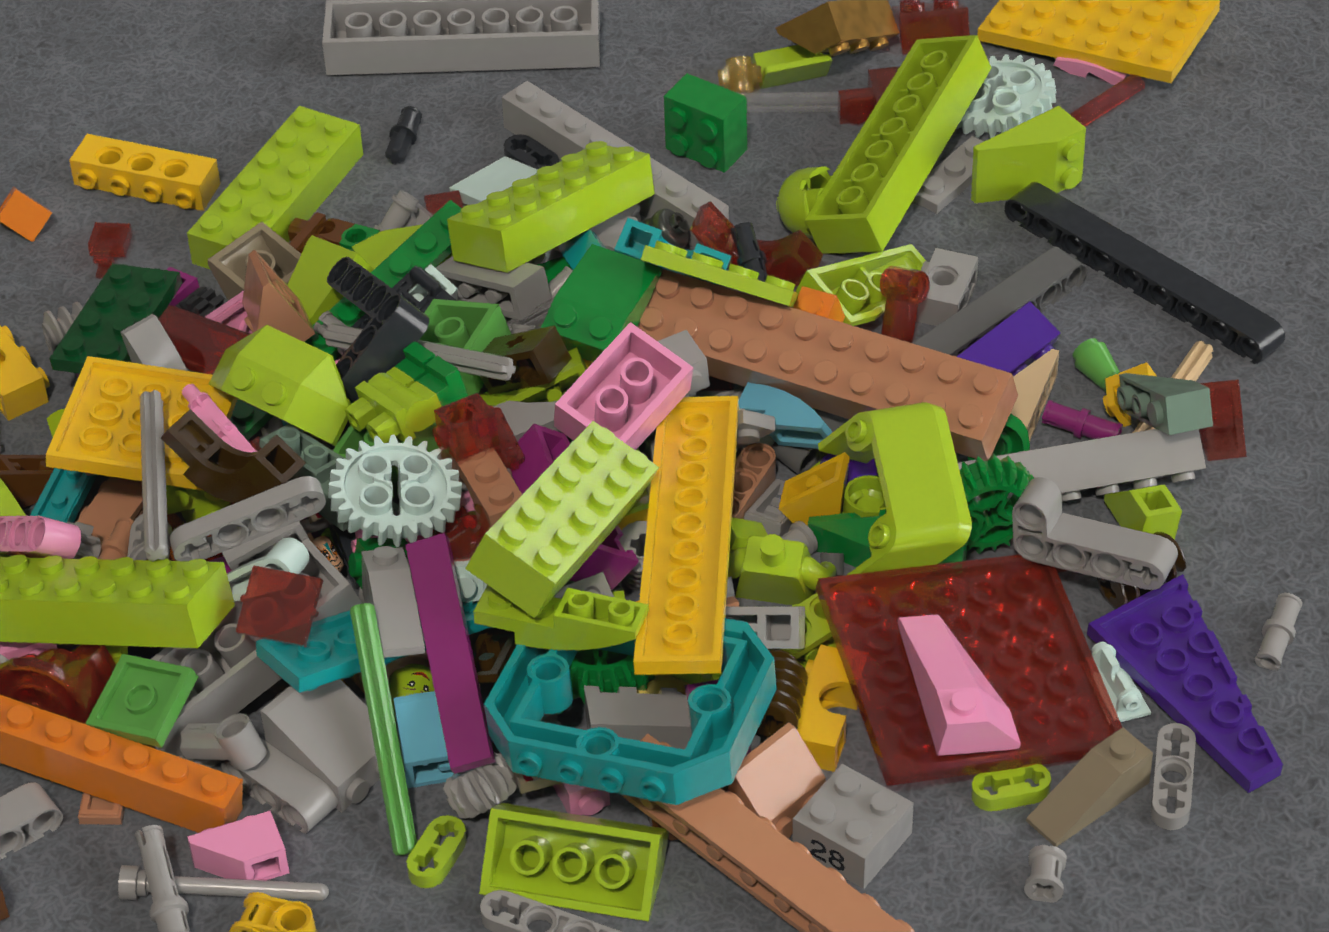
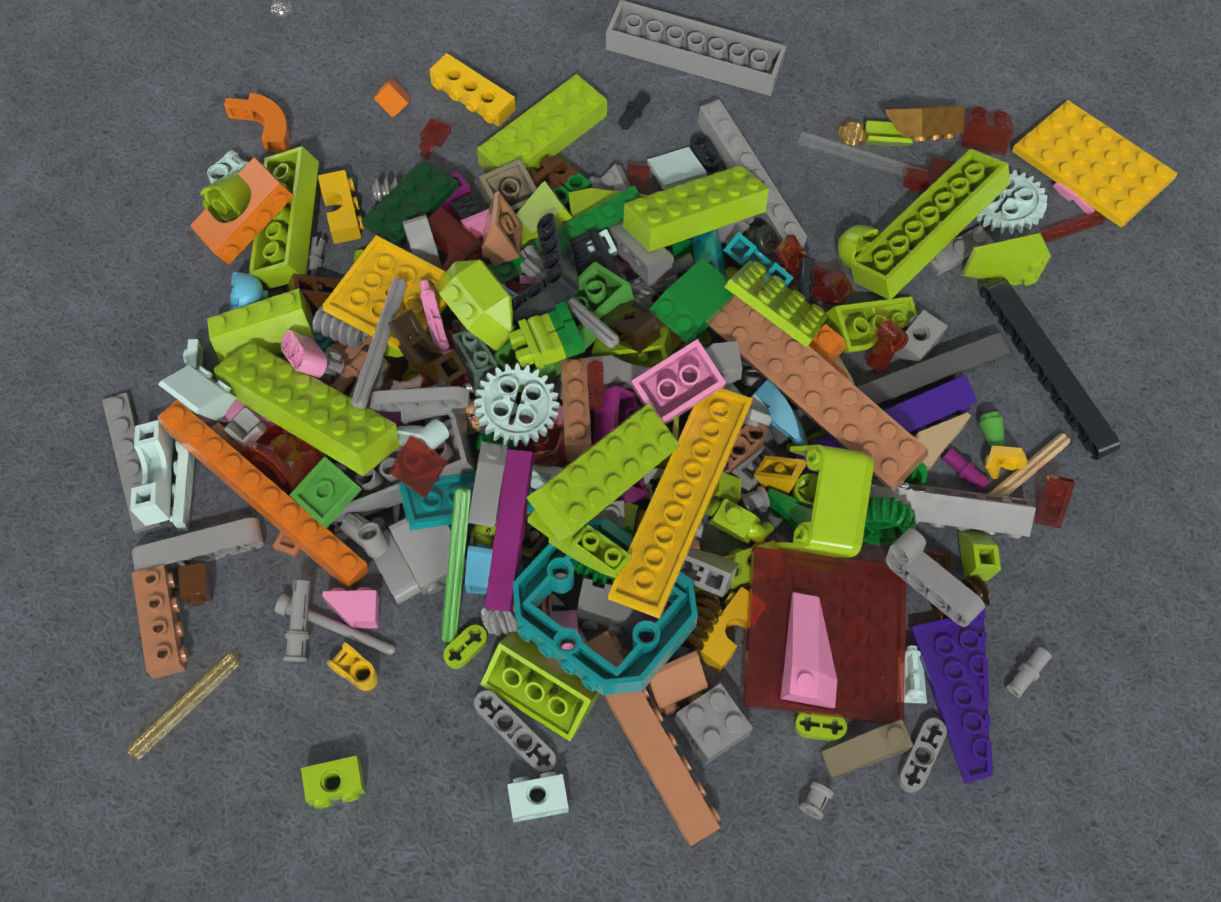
camera: 15 degrees right, 20 degrees up
(75, 499) = (338, 329): none -> light grey piece
(399, 211) = (610, 172): light grey pin -> none
(466, 427) = (579, 369): clear red brick -> none
(705, 122) = (816, 166): green brick -> none
(1165, 402) = (1022, 489): sand green slope -> none

